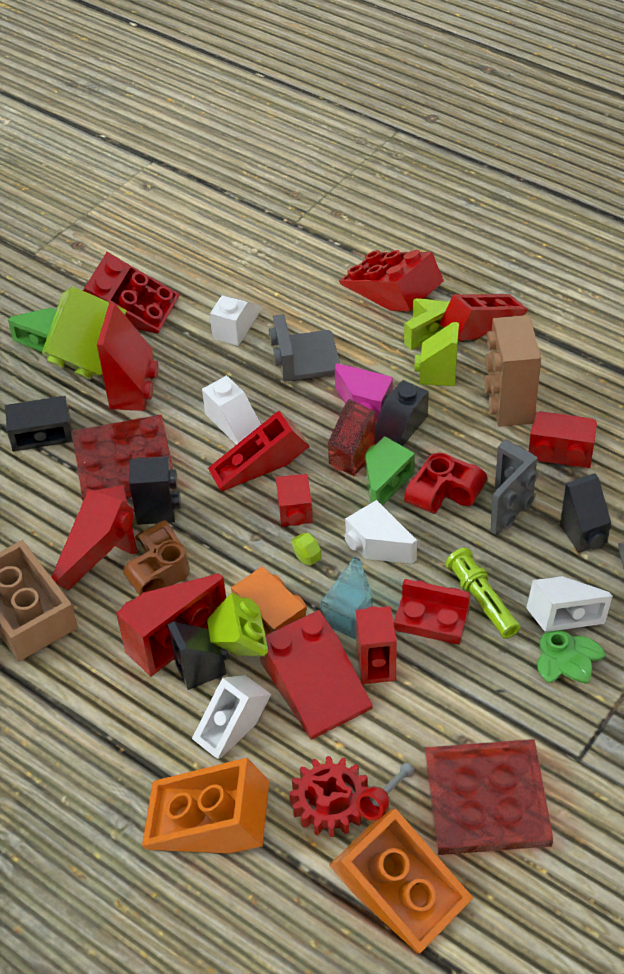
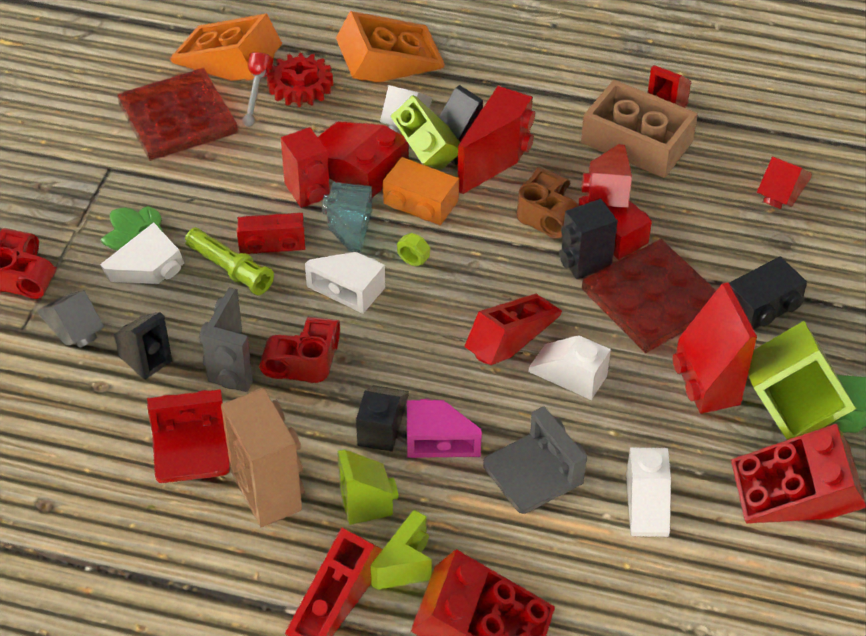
camera: 155 degrees right, 0 degrees up
(294, 500) = (450, 289): red brick -> none
(352, 438) = (417, 358): clear red slope -> none
(387, 469) = (371, 346): bright green slope -> none

